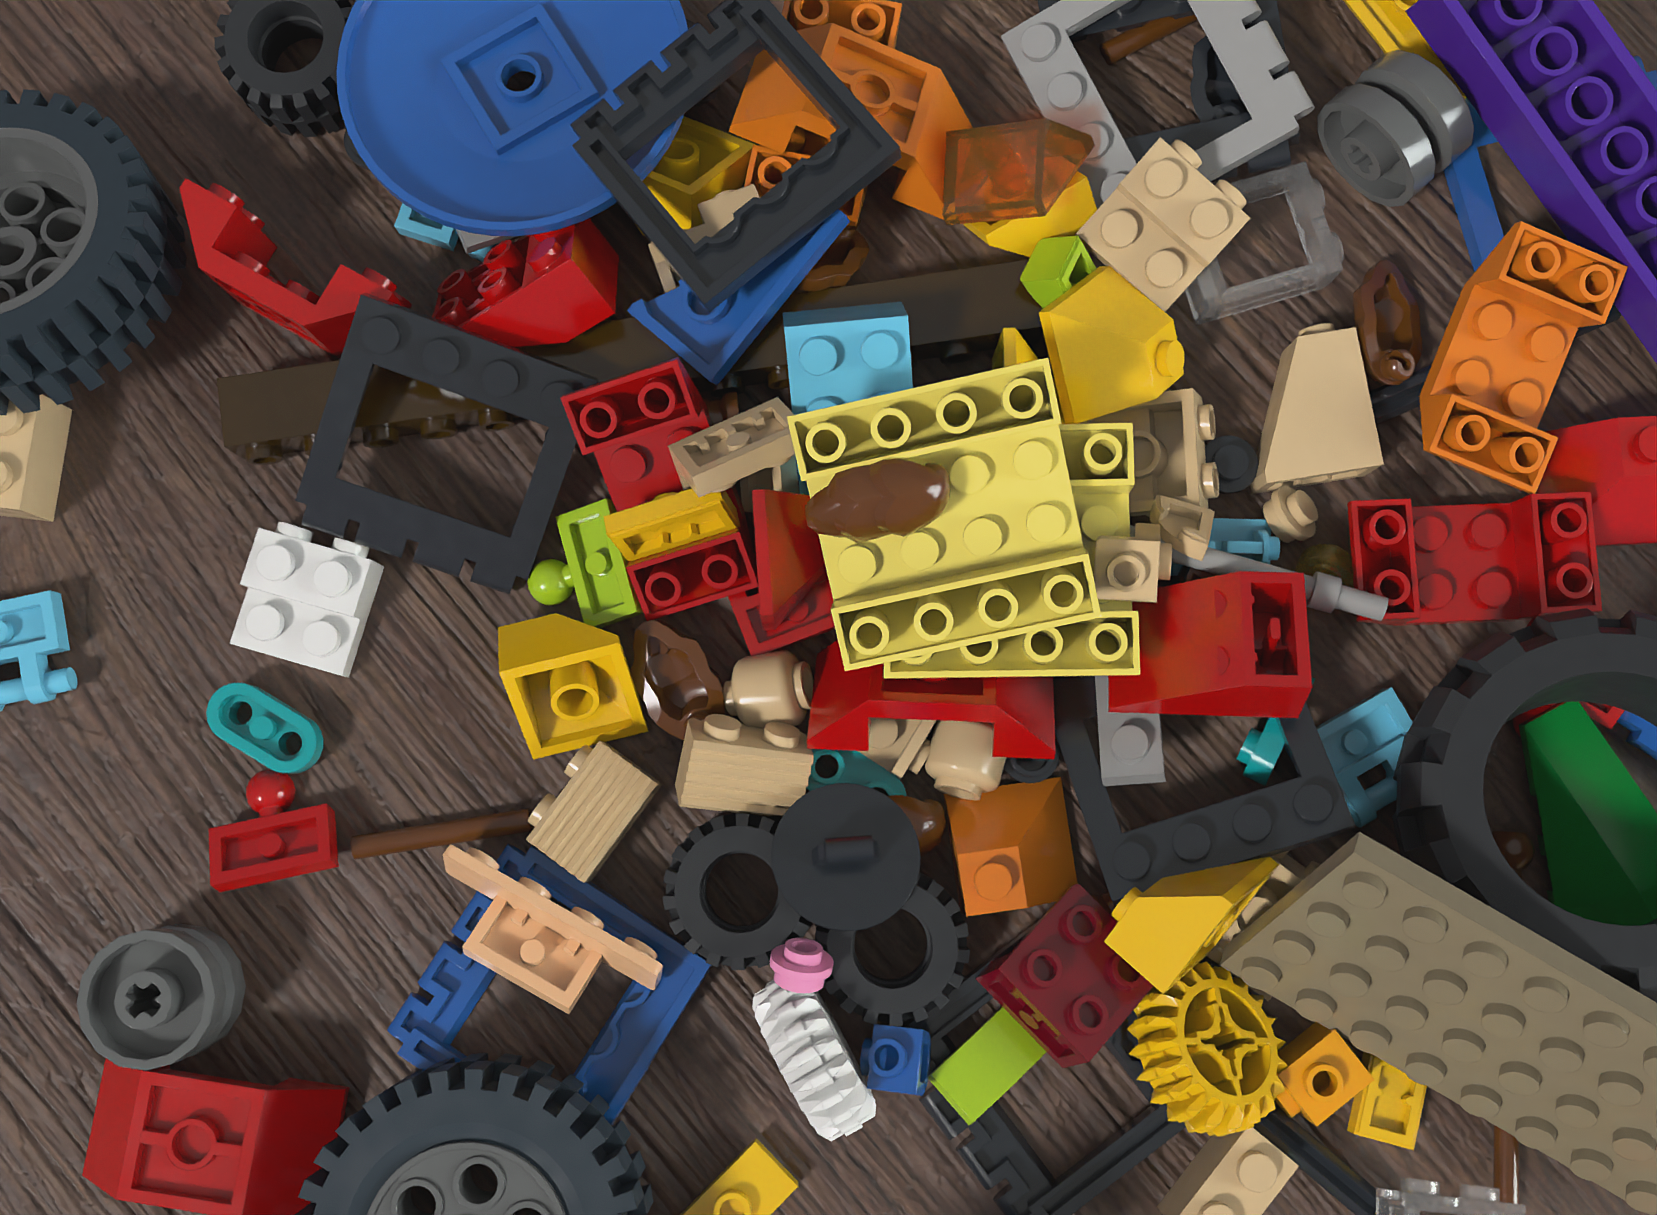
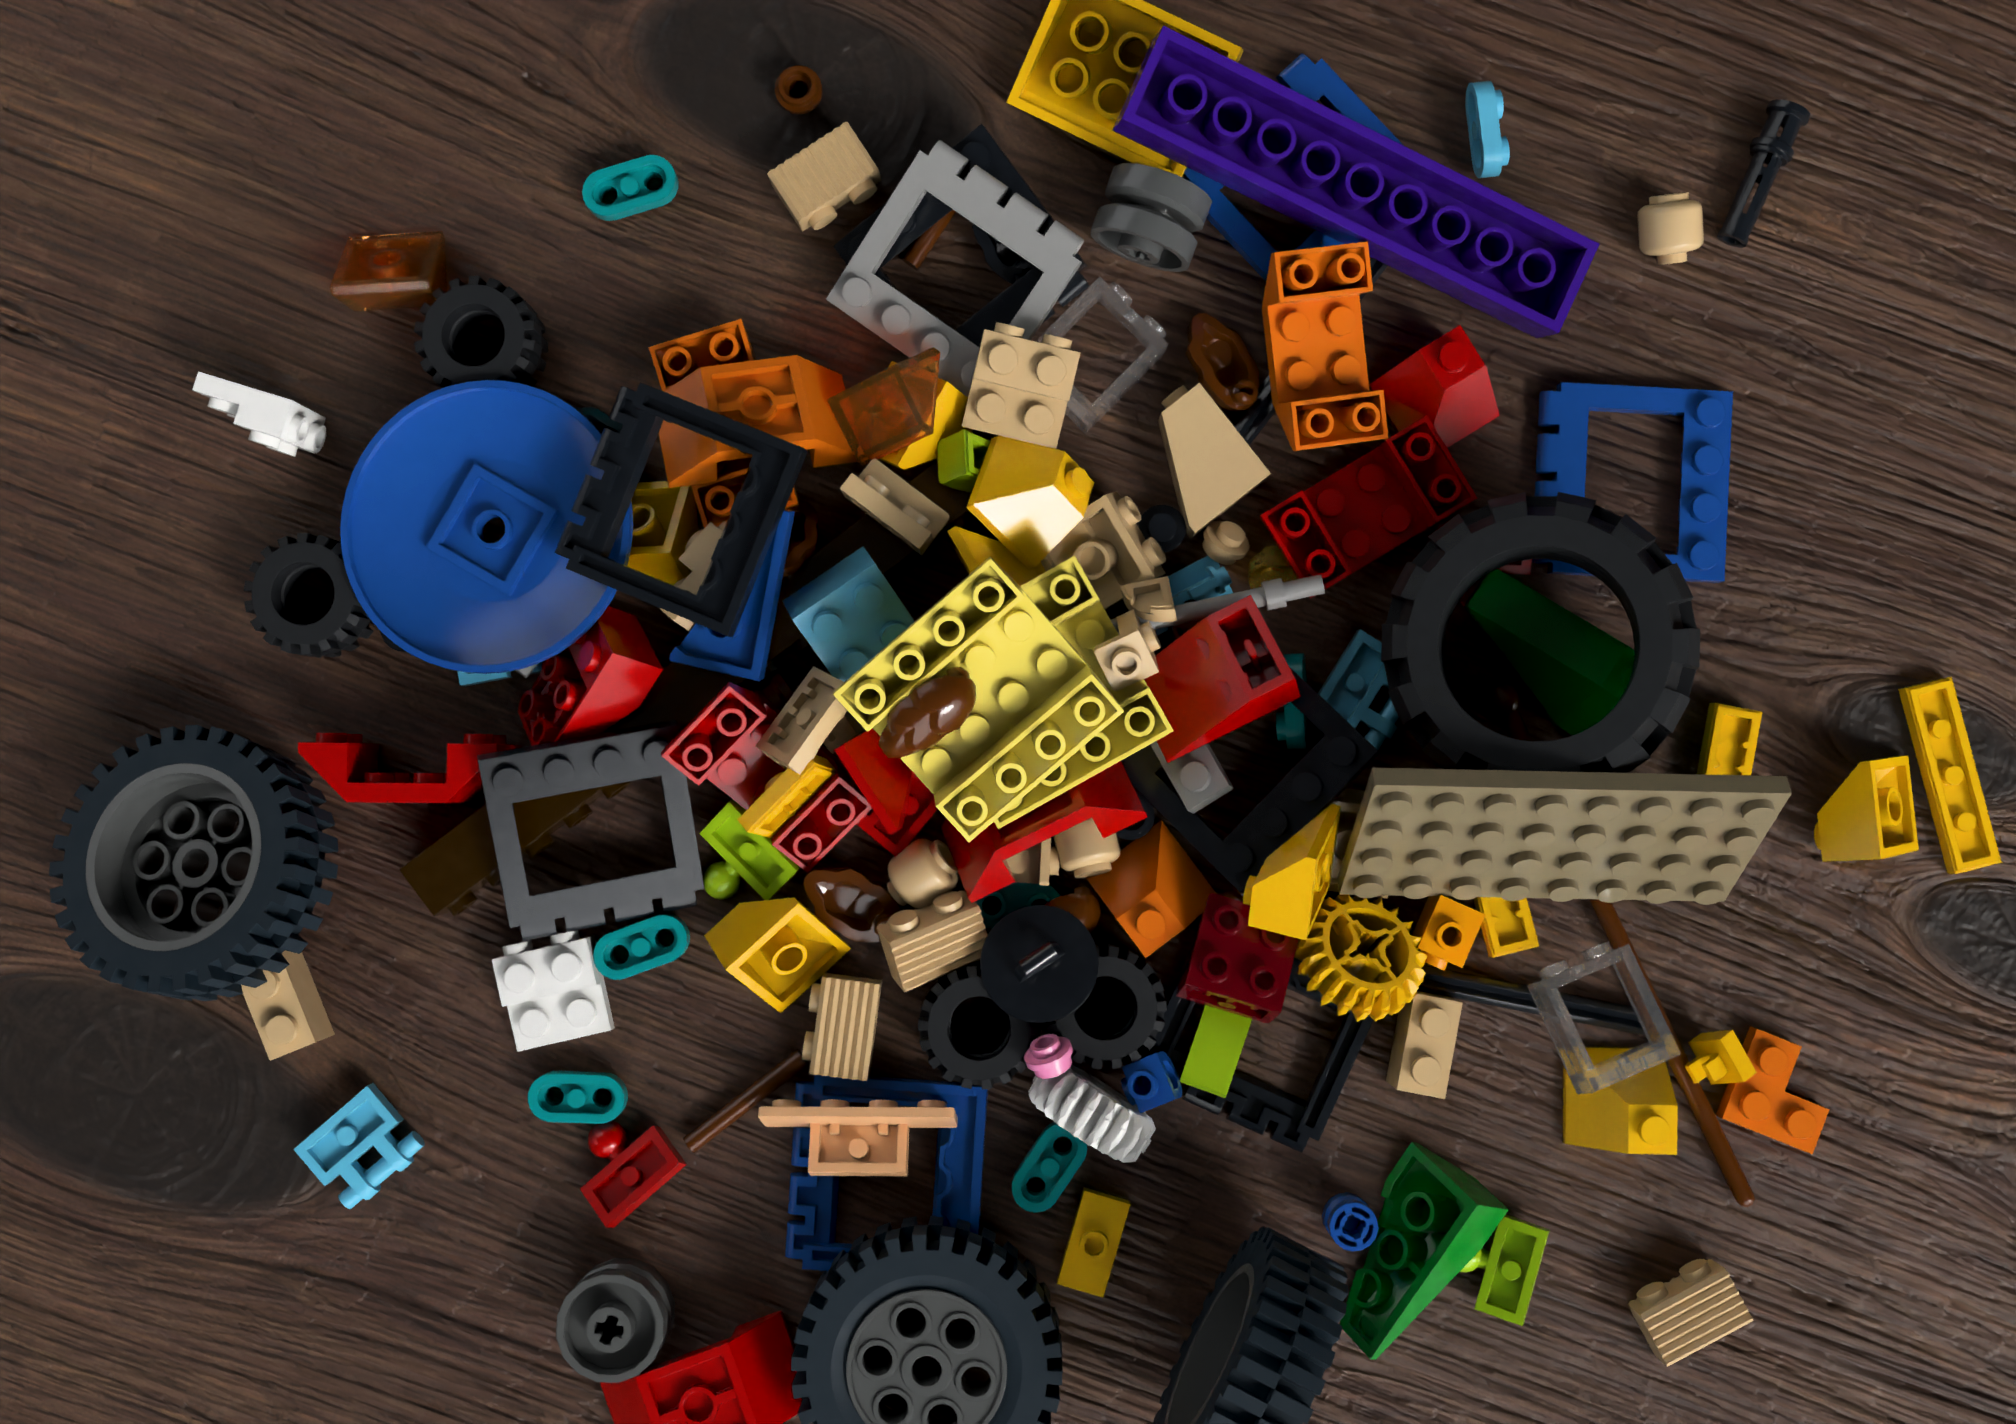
camera: 25 degrees left, 5 degrees up
(428, 603) = (643, 946): none -> teal plate
(734, 1094) = (1049, 1164): none -> teal plate
(958, 277) = (896, 505): none -> tan bracket

